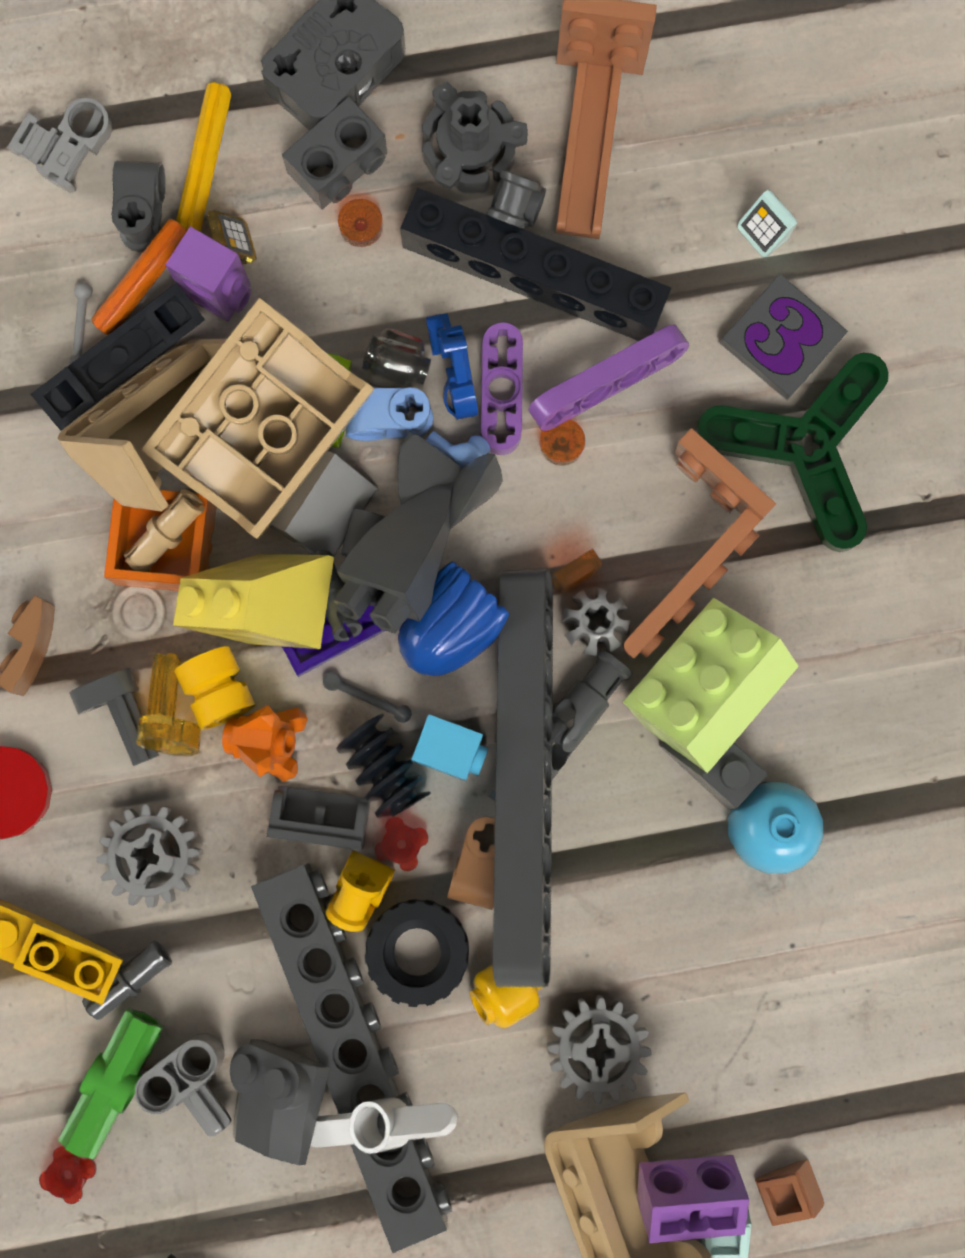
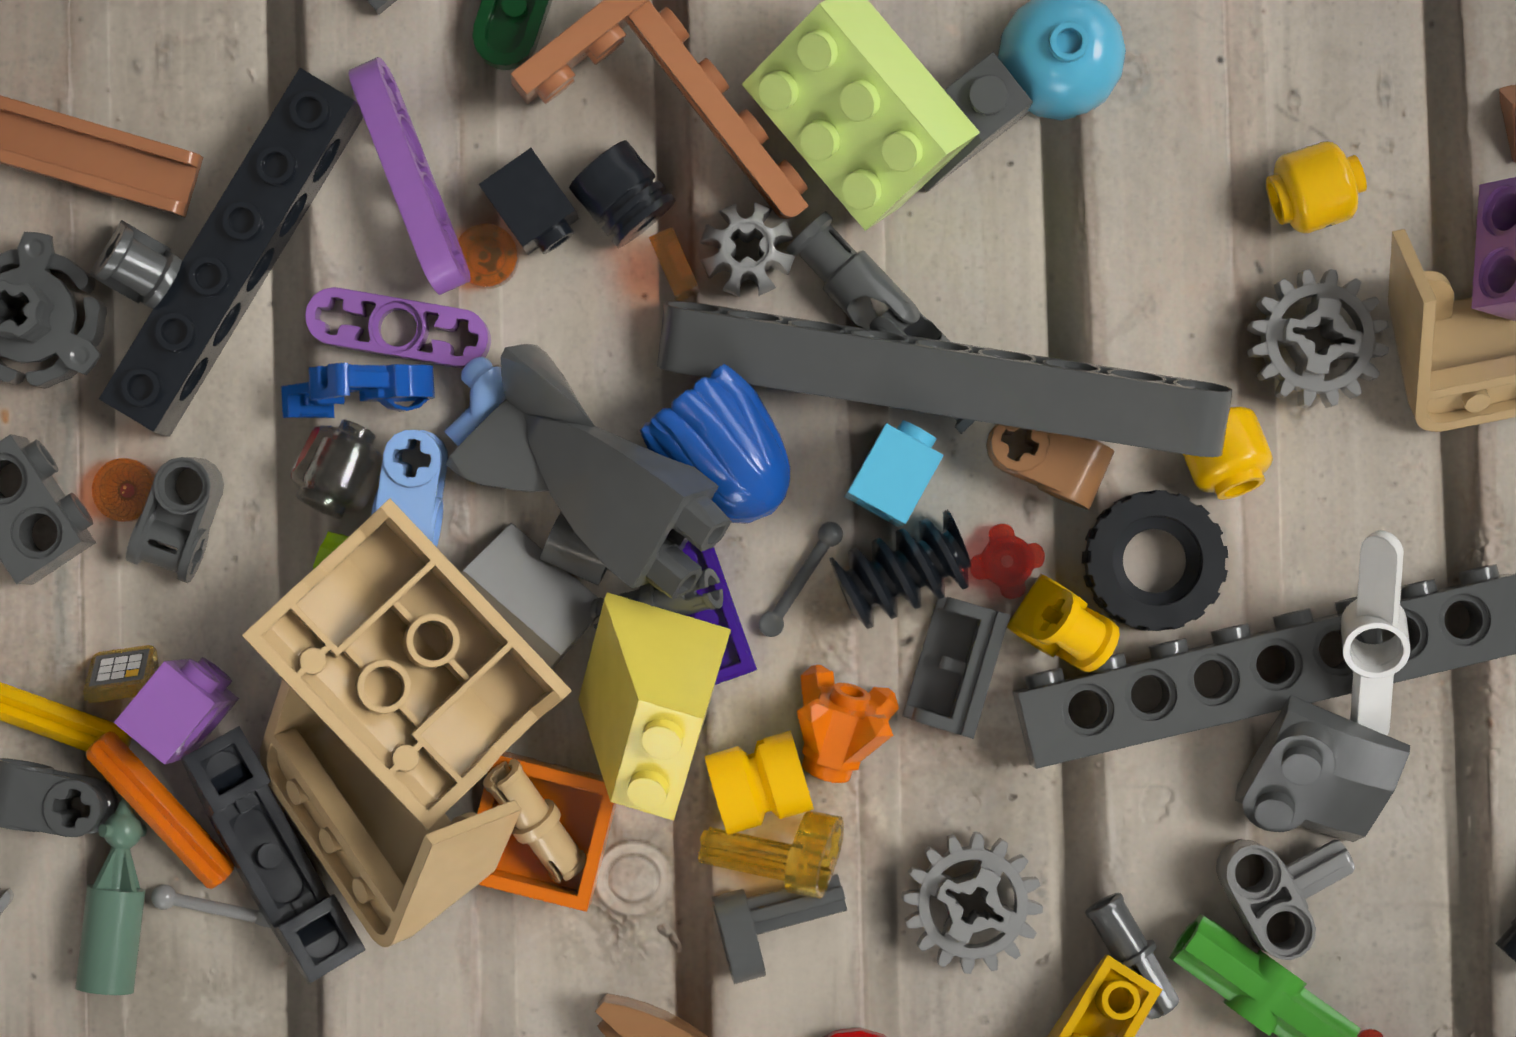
camera: 80 degrees left, 5 degrees up
(65, 257) = (113, 912): none -> sand green wheel
(337, 257) = (174, 521): none -> dark grey piece
(603, 464) = (531, 203): none -> black brick
(621, 526) = (621, 193): none -> black piece
(710, 1030) = (1315, 187): none -> yellow head

